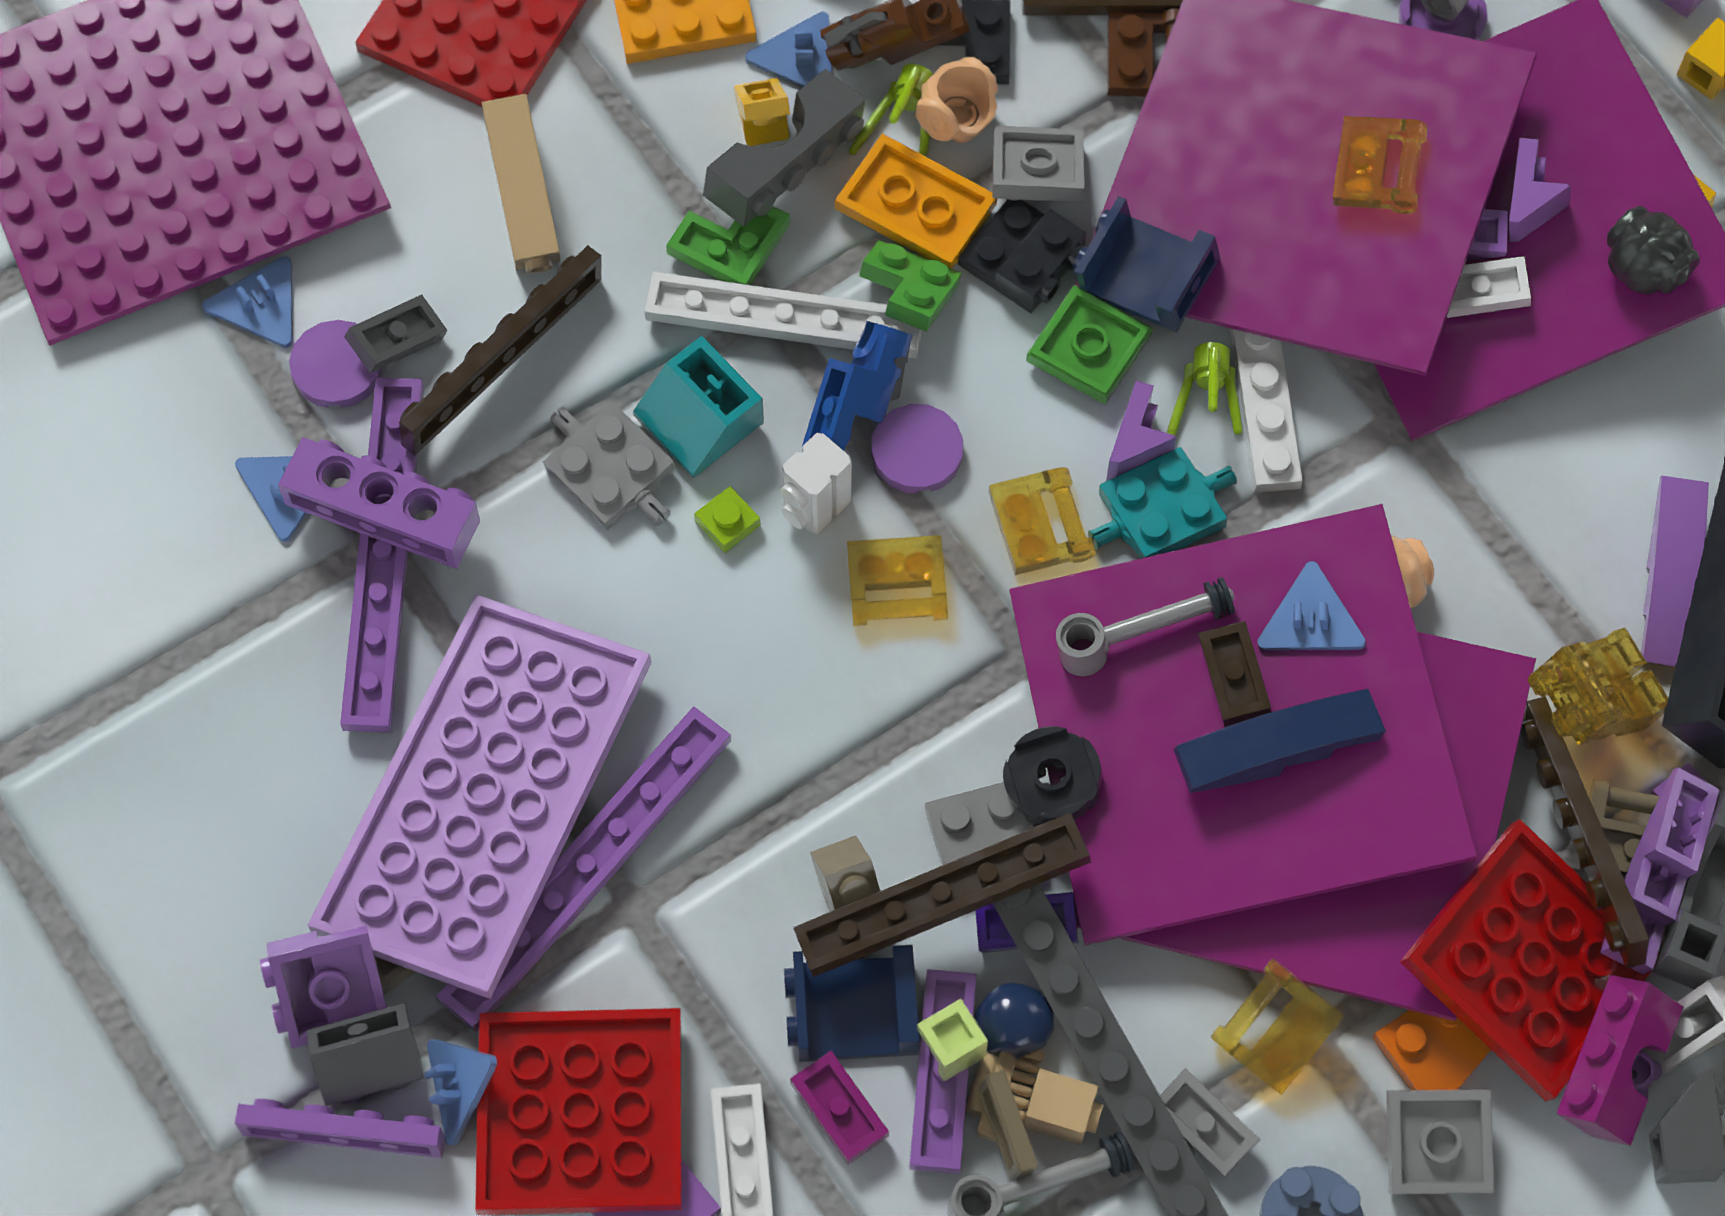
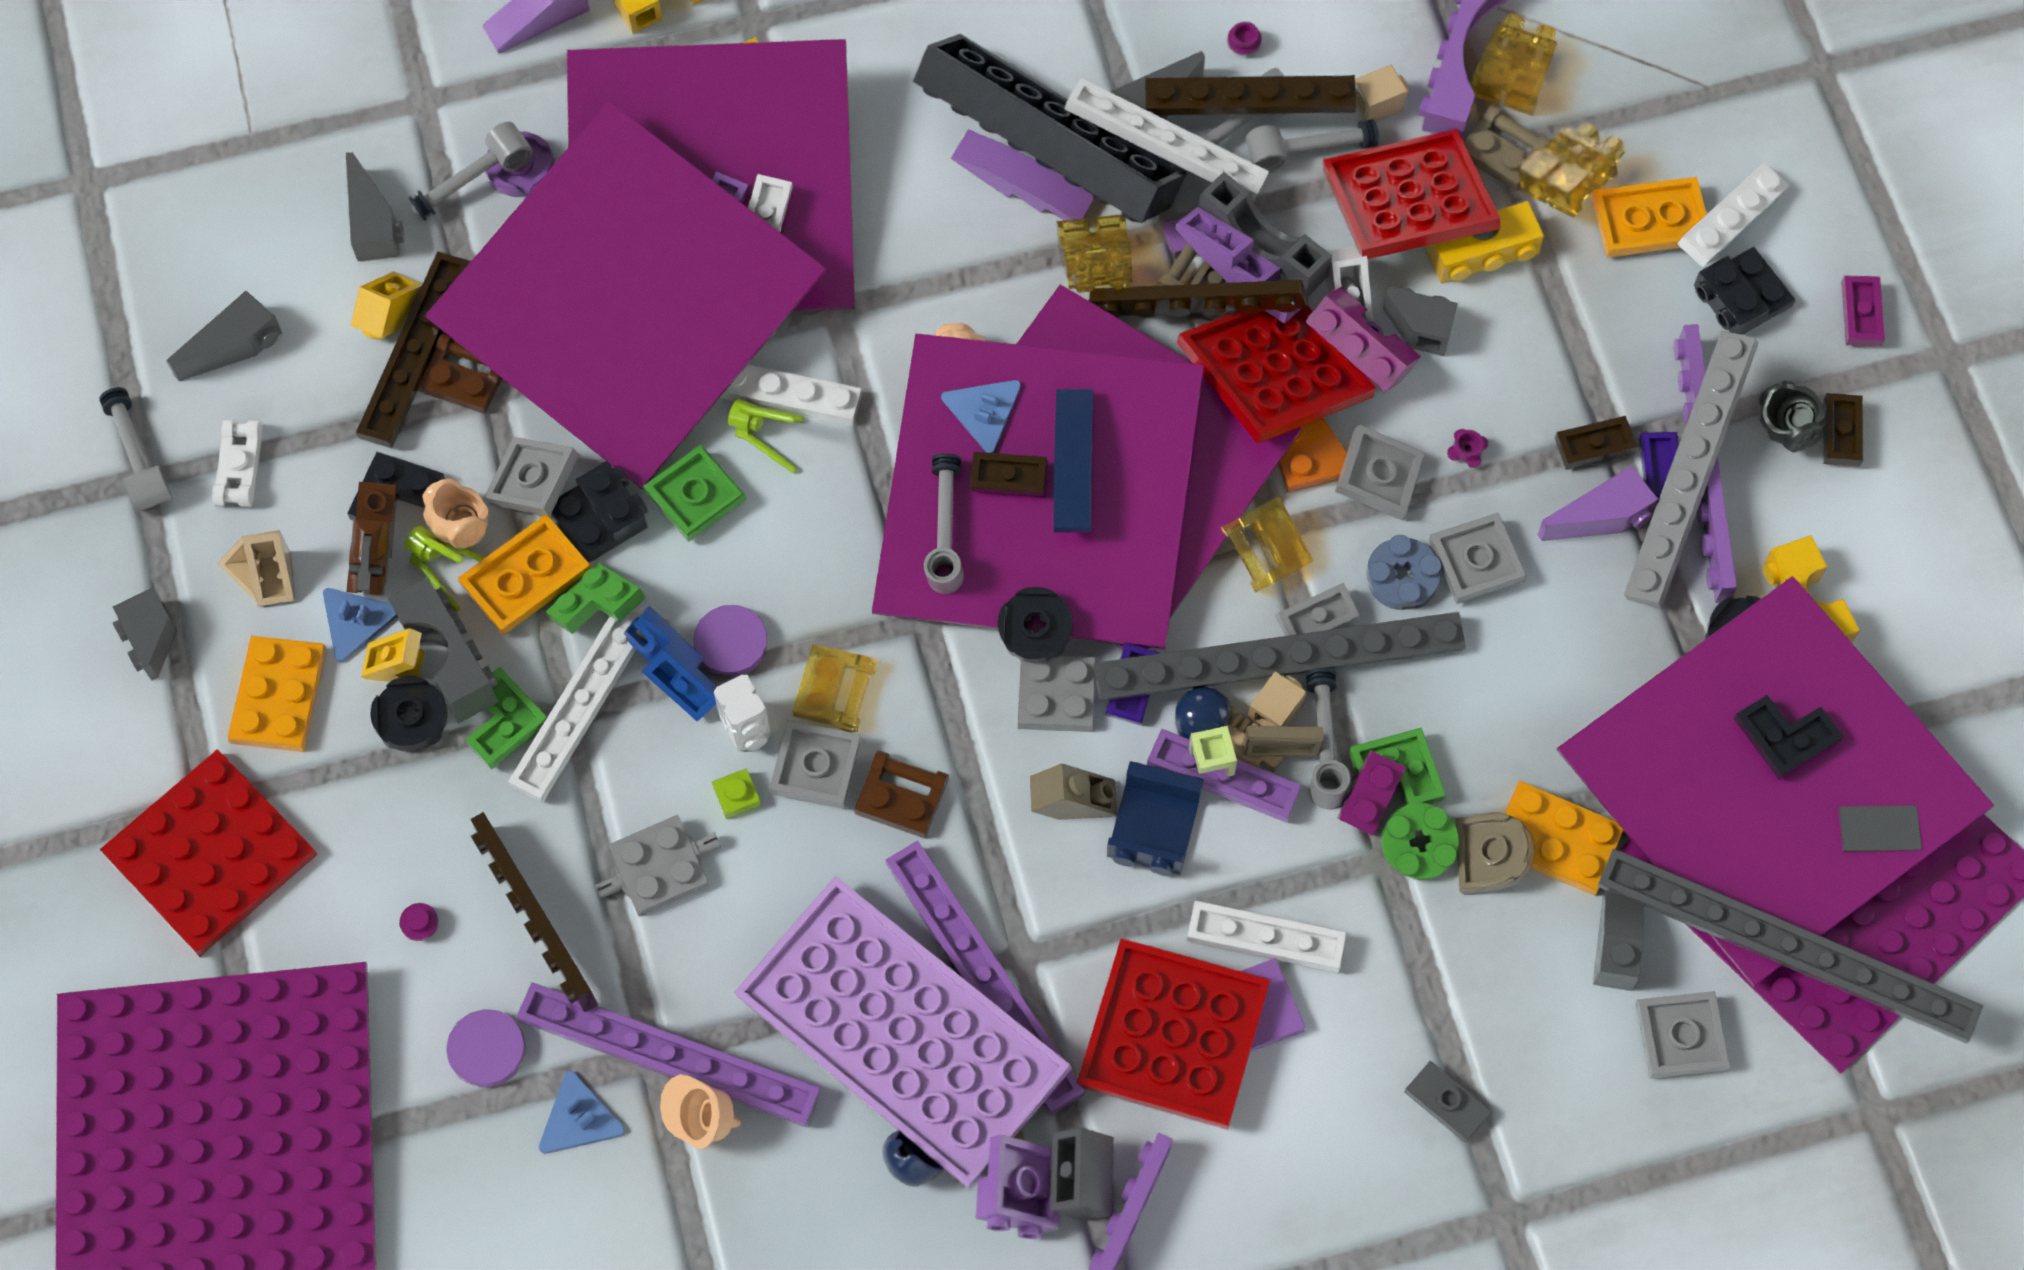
camera: 70 degrees left, 0 degrees up
(259, 303) = (403, 1096): medium blue piece -> none
(320, 607) = (696, 1111): none -> light nougat piece
(322, 849) = (908, 1162): none -> dark blue hair
(395, 333) = (484, 990): dark grey plate -> none
(440, 538) = (602, 1089): medium lavender brick -> none
(459, 1083) = (1124, 1112): medium blue piece -> none
(460, 244) = (418, 921): none -> magenta plate
(521, 183) = (390, 856): tan slope -> none
(679, 136) = (423, 729): none -> black plate
(699, 407) = (641, 781): teal slope -> none
(773, 700) = (897, 805): none -> reddish brown plate
(791, 591) = (815, 764): none -> light grey plate
(839, 1107) = (1228, 853): magenta plate -> none
(942, 894) = (1106, 724): dark brown plate -> none
(1027, 525) = (821, 582): clear yellow plate -> none
(1136, 439) = (786, 489): medium lavender slope -> none
(1145, 267) = (655, 428): dark blue panel -> none
(1162, 505) = (843, 488): teal plate -> none
(1364, 159) = (645, 246): clear yellow plate -> none
(1532, 198) = (711, 155): medium lavender slope -> none
(1650, 251) = (792, 90): pearl dark grey hair -> none

